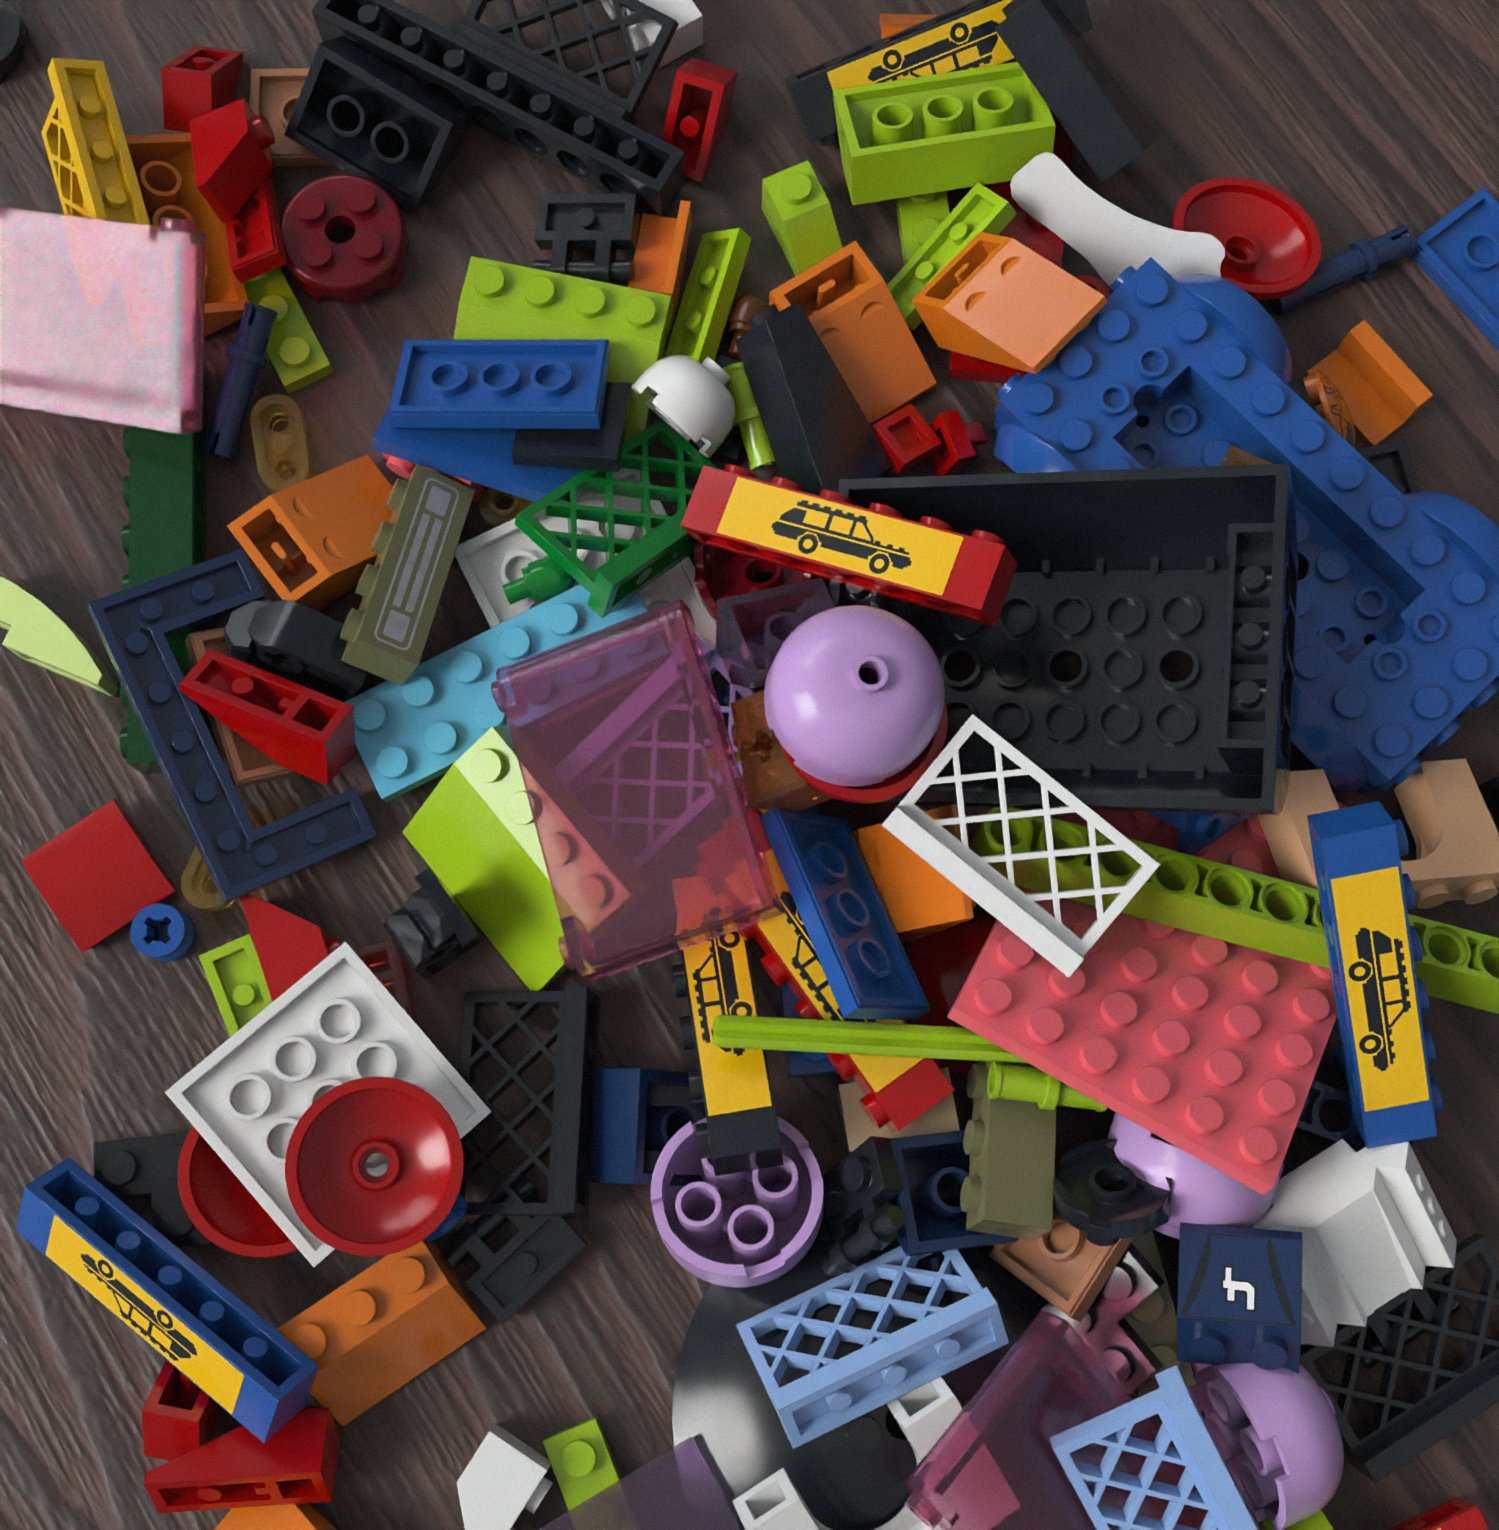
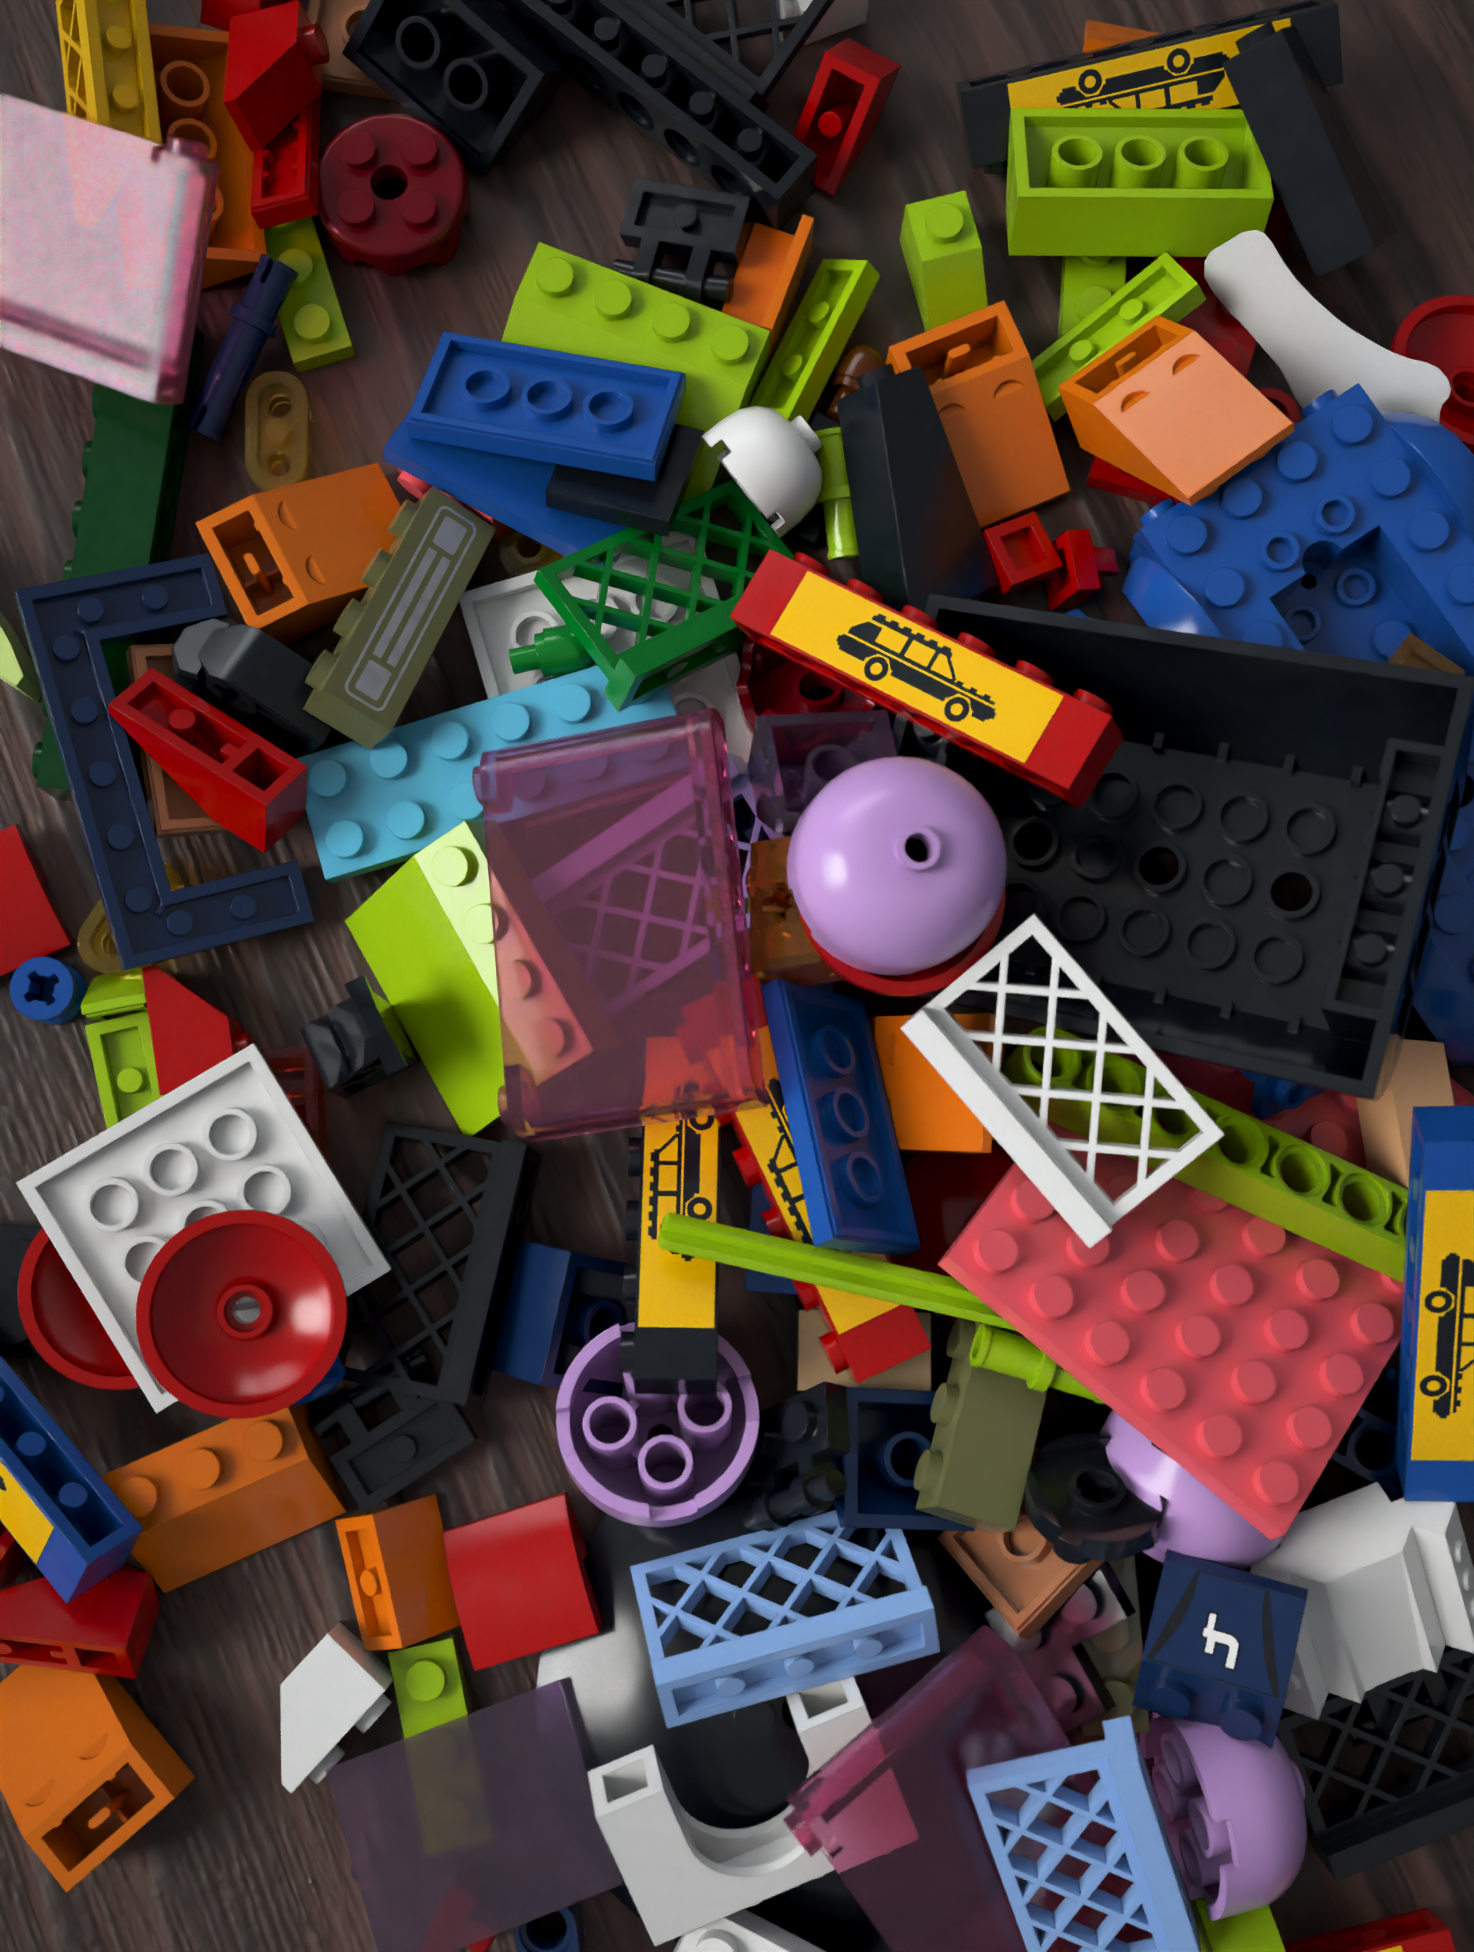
camera: 10 degrees right, 5 degrees up
(221, 927) = (114, 996): none -> lime slope
(541, 1372) = (398, 1573): none -> orange panel
(645, 1358) = (521, 1581): none -> red slope

